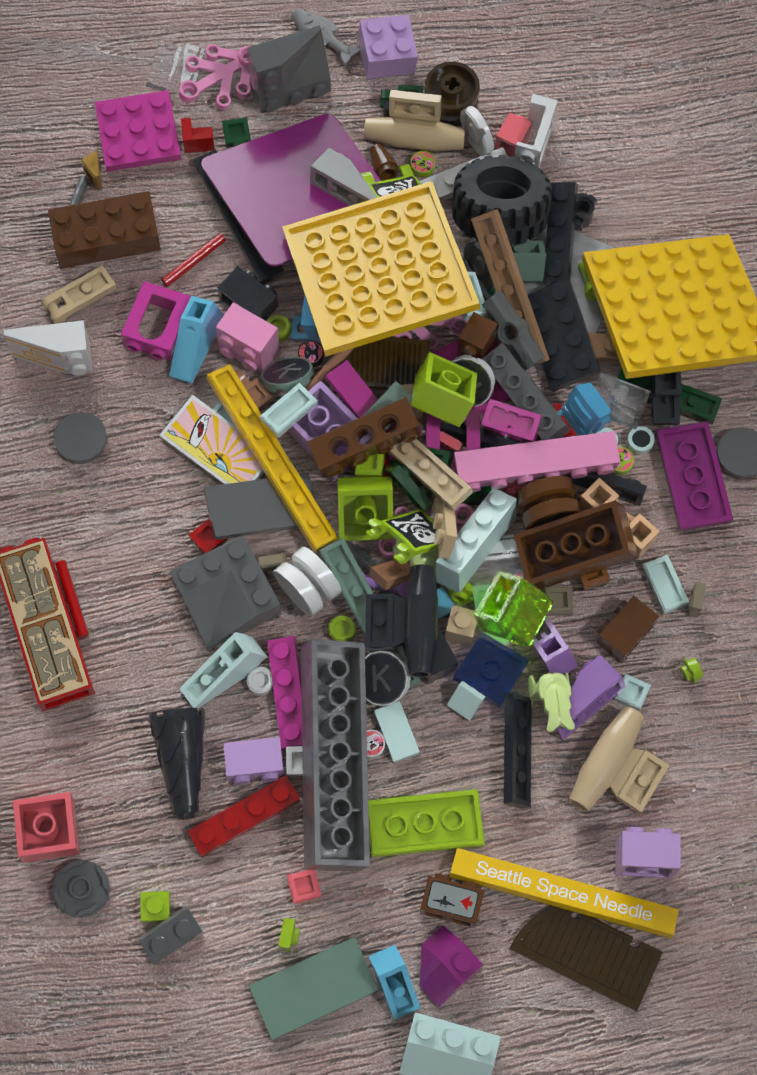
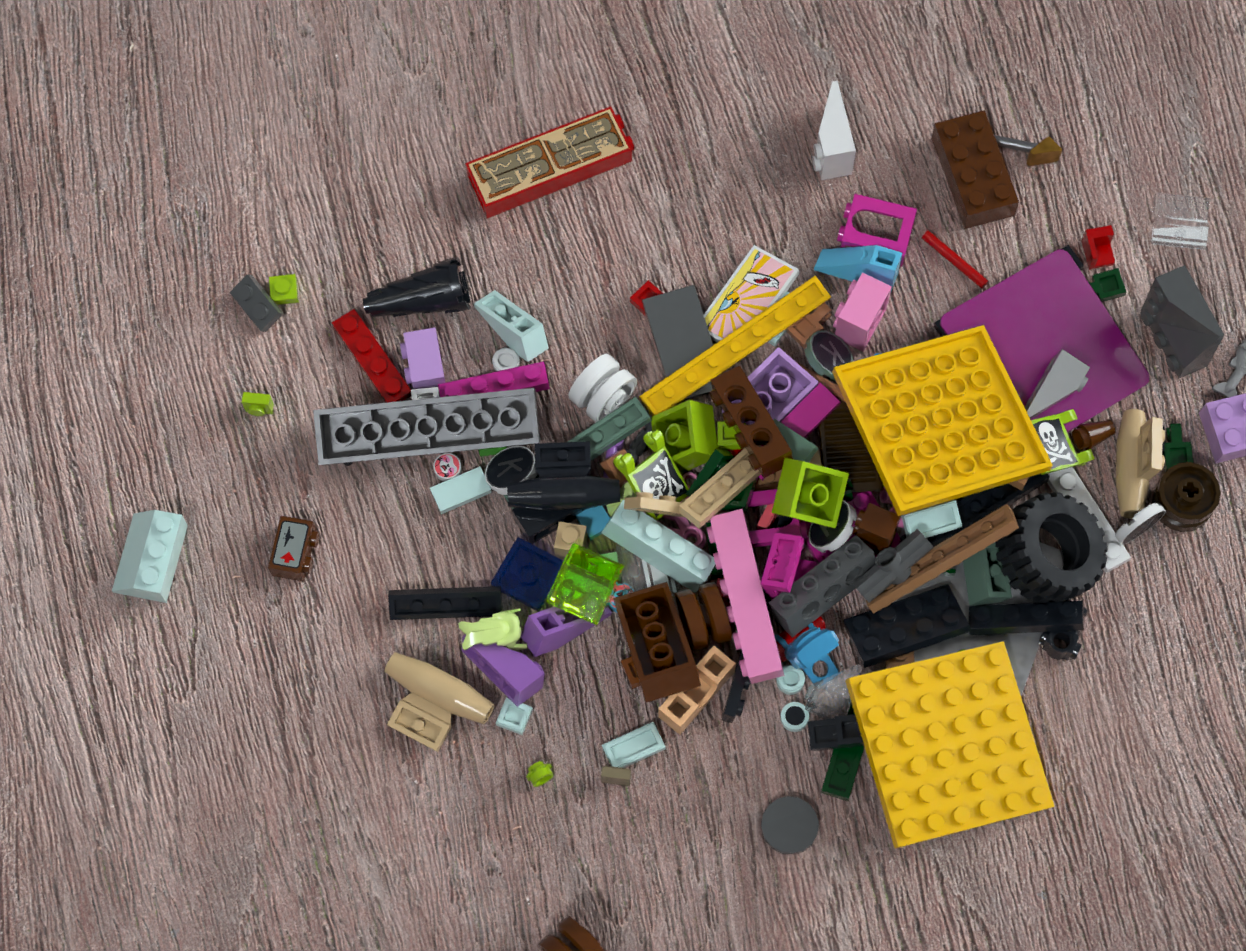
camera: 90 degrees right, 0 degrees up
(46, 827) = (349, 185): coral brick -> none
(72, 599) = (578, 186): red bar -> none
(79, 294) = (901, 156): tan plate -> none
(80, 437) = (745, 175): dark grey tile -> none
(81, 888) = (299, 225): dark grey tile -> none
(137, 130) = (1099, 191): dark pink plate -> none
(221, 73) = (1174, 260): bright pink plant -> none
(225, 592) = (592, 318): dark grey slope -> none
(248, 293) = (916, 312): black brick -> none
(271, 562) = (623, 357): dark tan tile -> none
(282, 324) = (885, 342): lime tile -> none
(288, 410) = (780, 352): light aqua tile -> none
(304, 886) = (304, 417): coral tile -> none
(313, 988) = (211, 433): sand green tile -> none
(342, 628) = (562, 430): lime tile -> none
(394, 981) = (216, 500): medium azure slope -> none
(422, 164) = (1099, 476): tile -> none
(425, 823) = (371, 523): lime tile -> none
(445, 965) = (234, 549): magenta slope -> none
(462, 597) = (606, 543): lime plate -> none
(466, 700) = (494, 551): light aqua tile -> none
(514, 130) = (1147, 567): coral brick -> none
(542, 116) = (1168, 592): white panel -> none
(562, 601) = (607, 639): dark tan tile -> none
(564, 893) = (304, 656): yellow tile -> none
(589, 954) = (248, 683): dark brown piece -> none
(626, 461) = (768, 696): tile -> none
(626, 628) = (579, 705): reddish brown brick -> none
(648, 853) = (339, 726): lavender brick -> none
(694, 476) = (756, 772): magenta plate -> none

